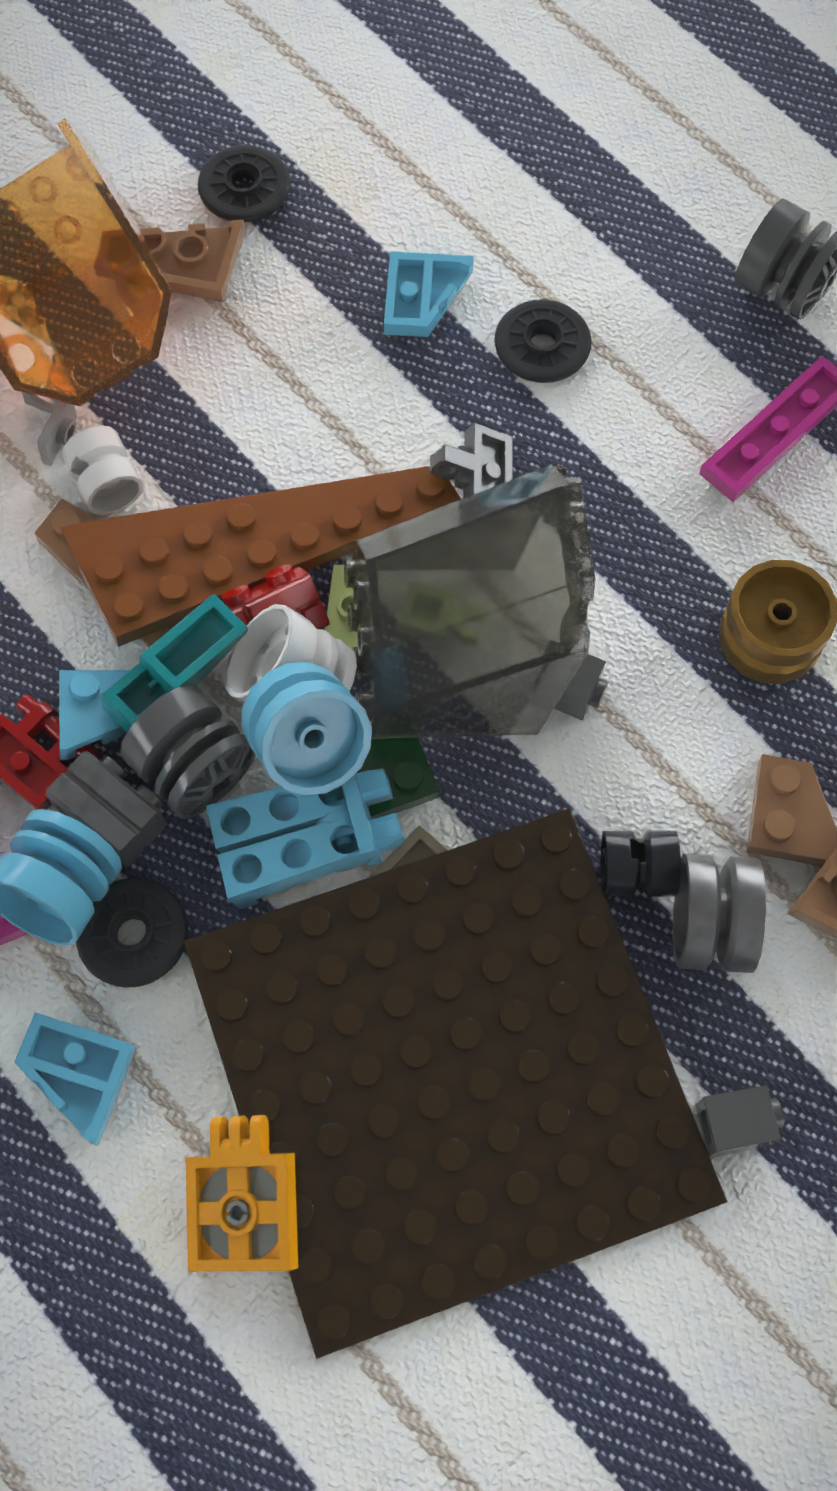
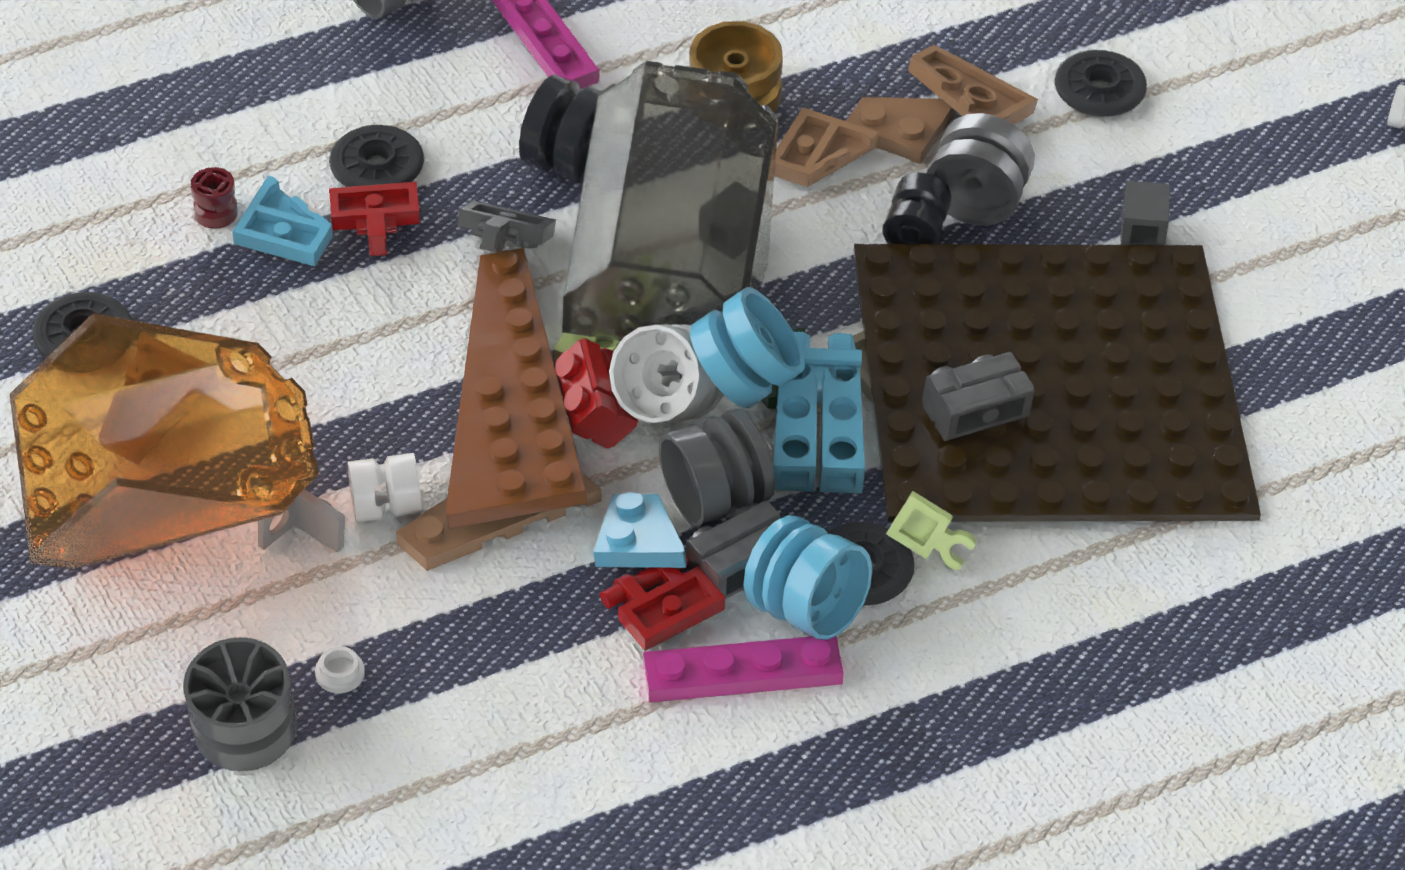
camera: 75 degrees left, 20 degrees down
(76, 1071) = (980, 619): medium azure wing -> none
(173, 986) = (924, 527): none -> yellowish green plate
(176, 659) = (637, 453): teal slope -> none
(241, 1201) = (1127, 518): light orange piece -> none
(356, 989) = (977, 395): none -> flat silver brick
(432, 223) = (214, 197): none -> dark red wheel
(465, 358) = (374, 210): none -> red hinge
(623, 480) = (559, 127): none -> black wheel
(714, 737) = (820, 146): none -> medium nougat wing

